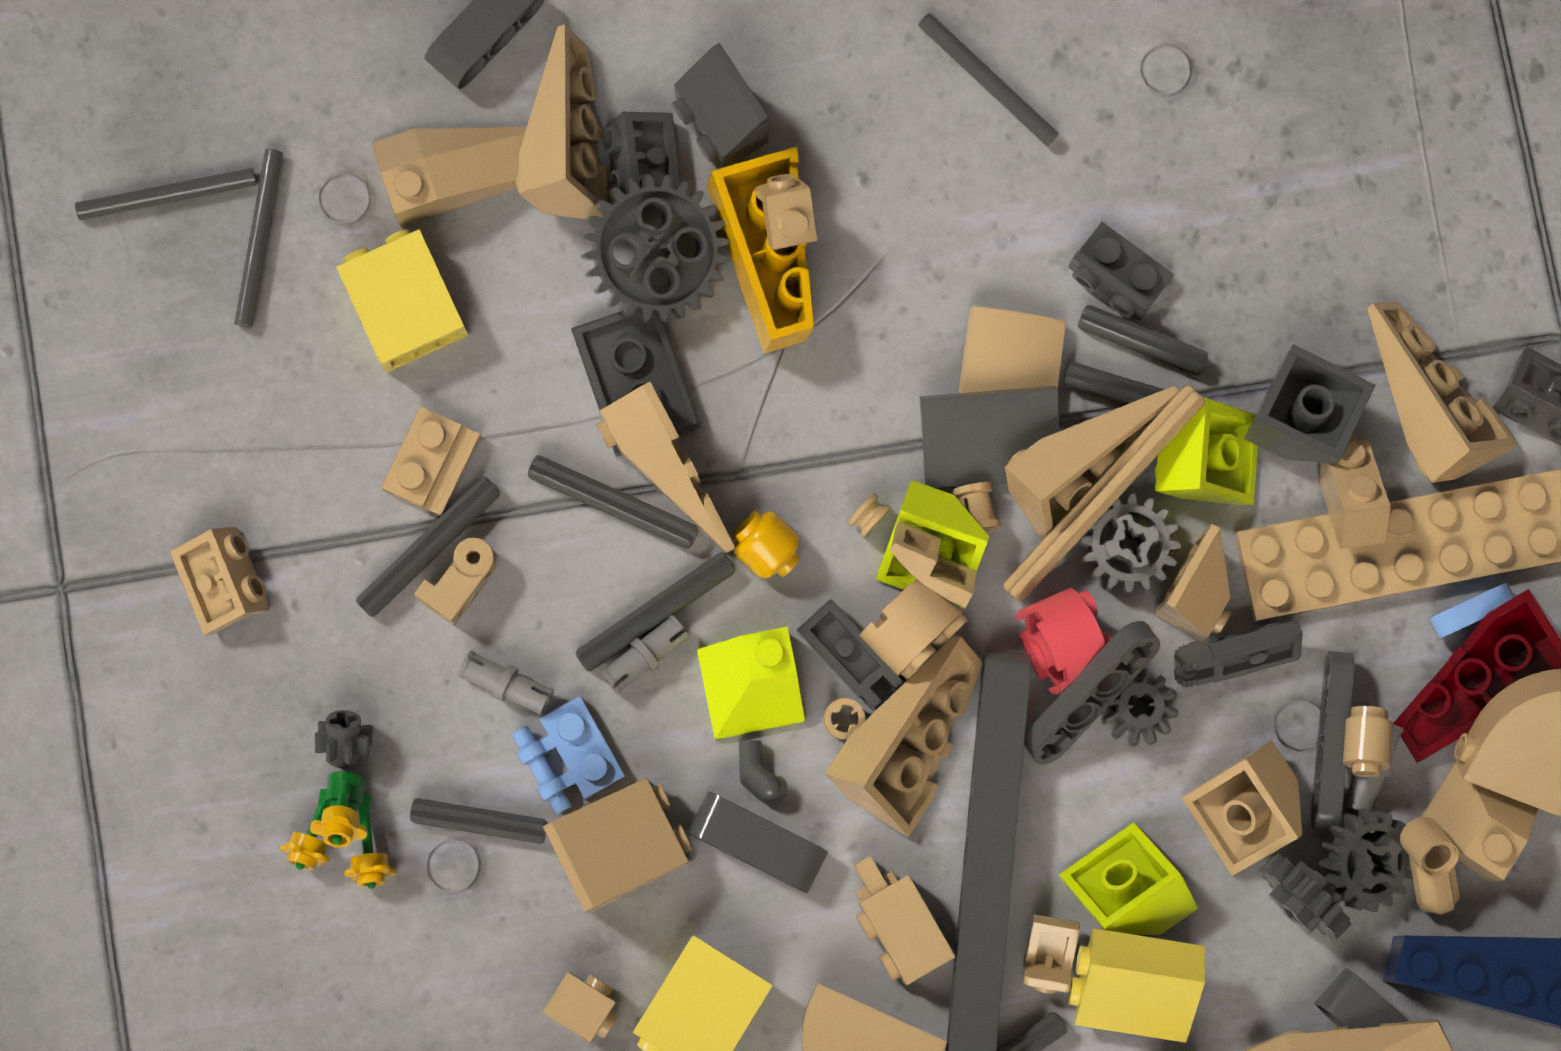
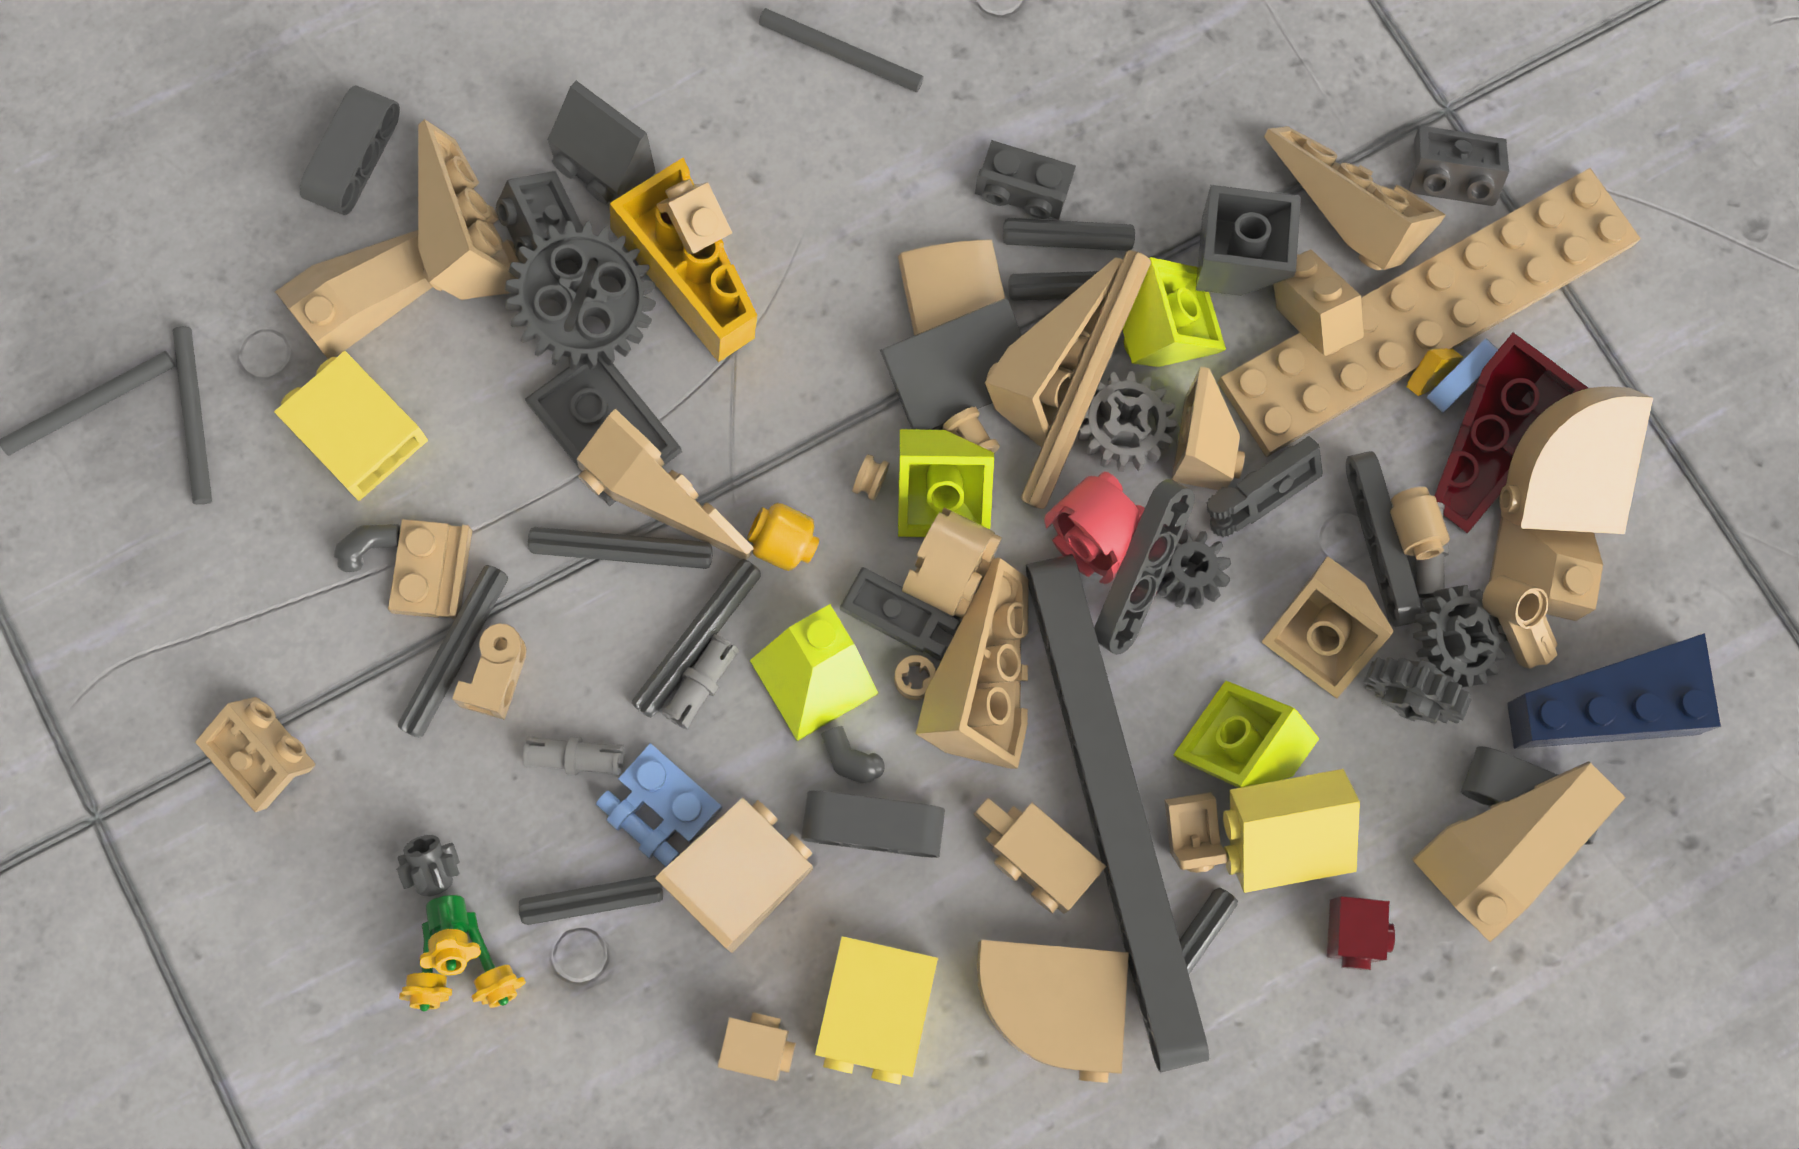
camera: 20 degrees left, 5 degrees down
(377, 412) = (359, 541): none -> dark grey arm
(920, 556) = (936, 492): tan slope -> none
(1445, 594) = (1433, 369): none -> yellow tile

